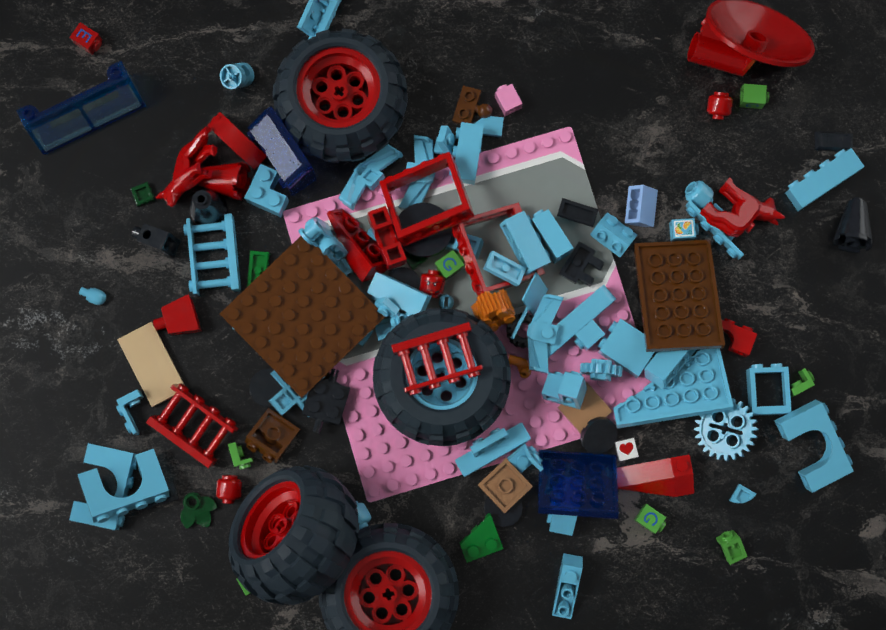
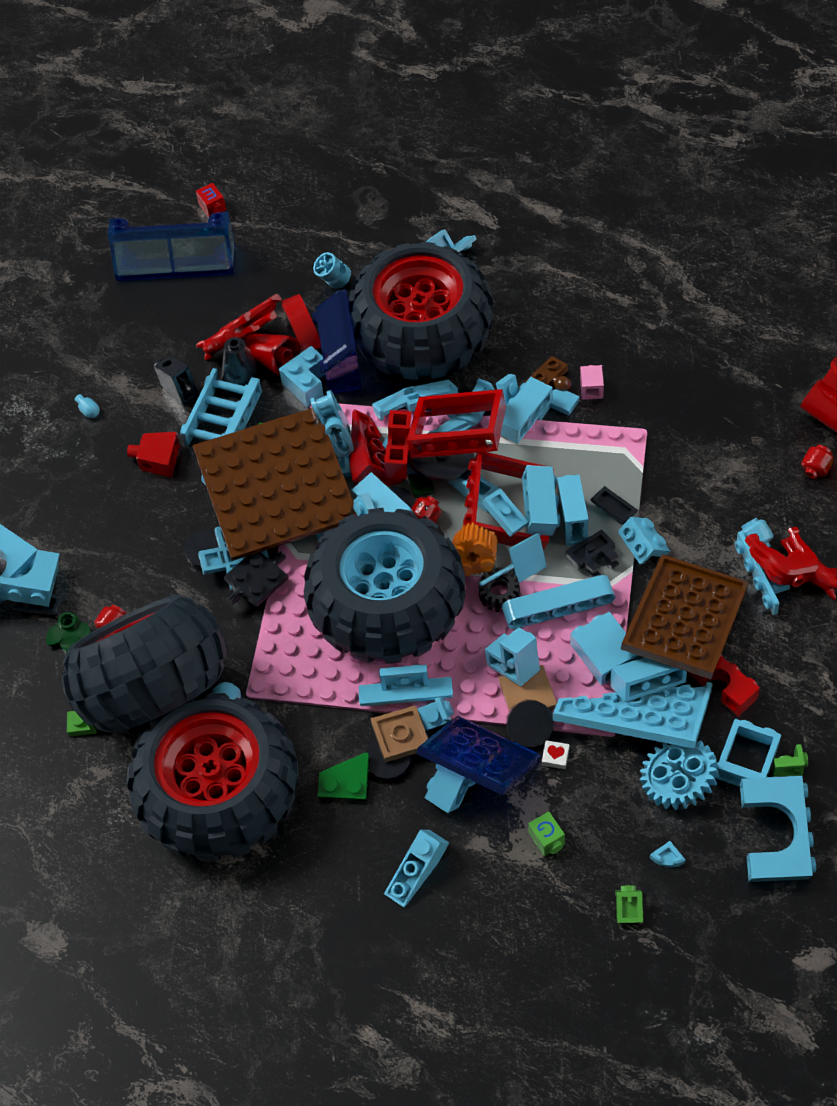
camera: 30 degrees right, 25 degrees down
(131, 399) = (60, 505): medium azure bracket -> none
(142, 194) = (186, 341): dark green tile -> none
(151, 363) = (105, 486): tan tile -> none
(175, 433) = (98, 567): red fence -> none
(236, 454) = (138, 594): bright green bracket -> none
(271, 436) = (183, 582): reddish brown plate -> none
(441, 338) = (382, 521): red fence -> none
(450, 264) = (452, 502): bright green brick -> none
(522, 365) = (480, 622): orange arm -> none
(542, 332) = (517, 592): medium azure plate -> none
(588, 335) = (566, 619): medium azure brick -> none
(601, 370) = (562, 652): medium azure gear -> none
(641, 206) = (687, 524): light blue brick -> none
(661, 477) = (578, 794): red wedge -> none
(683, 229) = (723, 560): medium azure brick -> none

